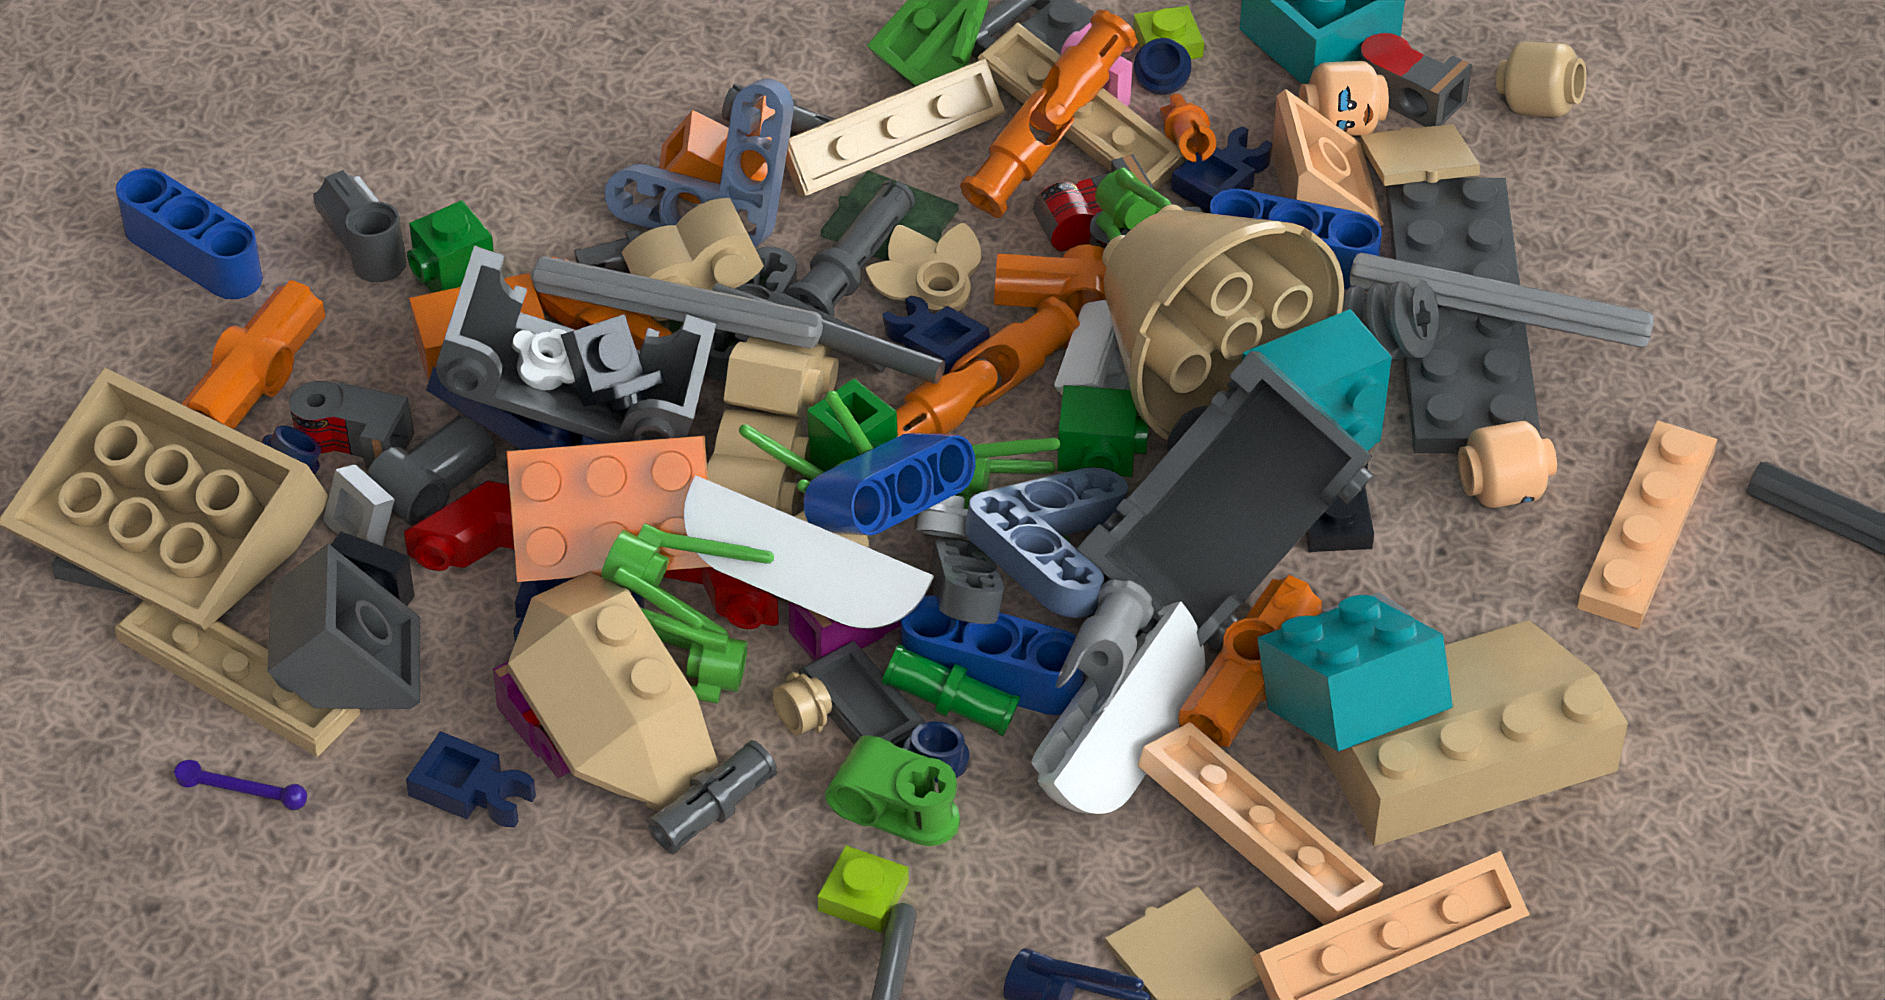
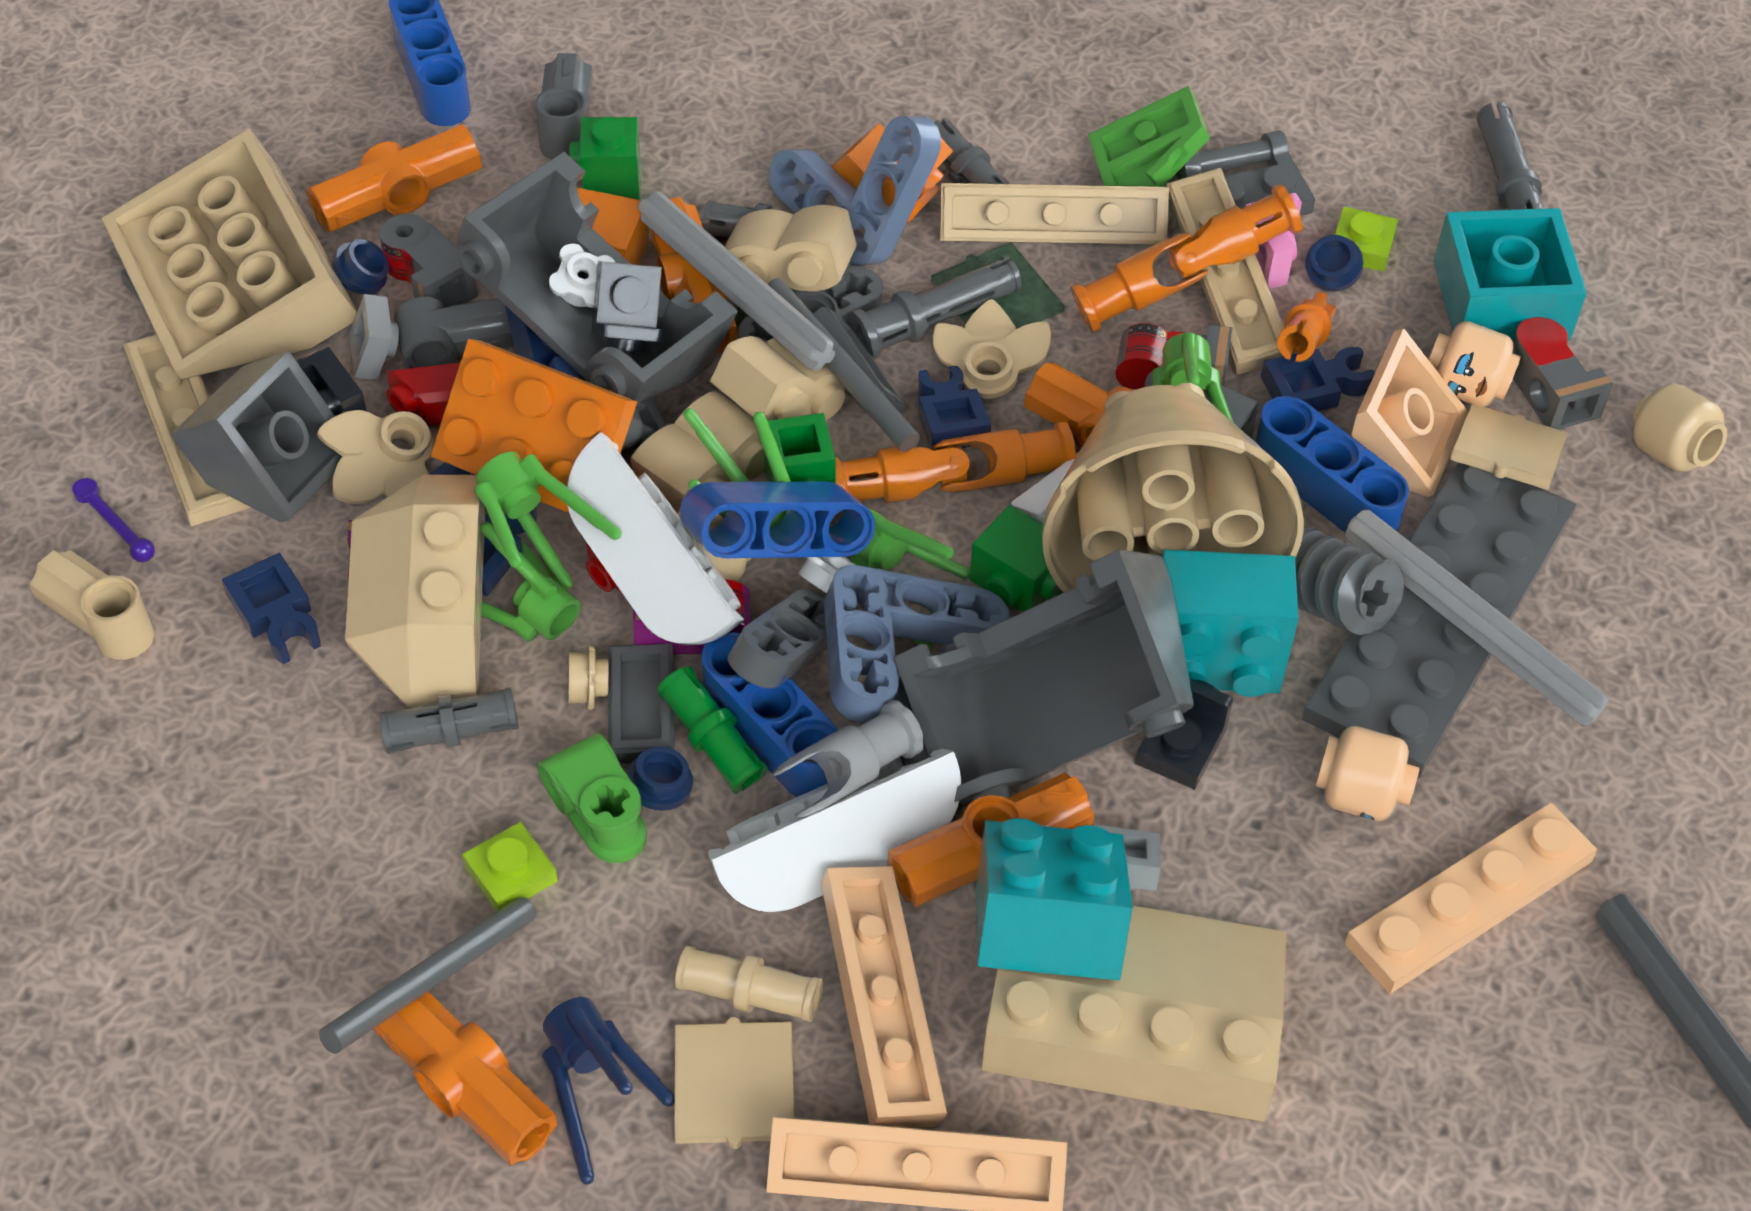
camera: 30 degrees right, 5 degrees up
(318, 857) = (96, 603): none -> tan piece
(455, 610) = (369, 459): none -> tan plate
(1144, 872) = (749, 983): none -> tan pin

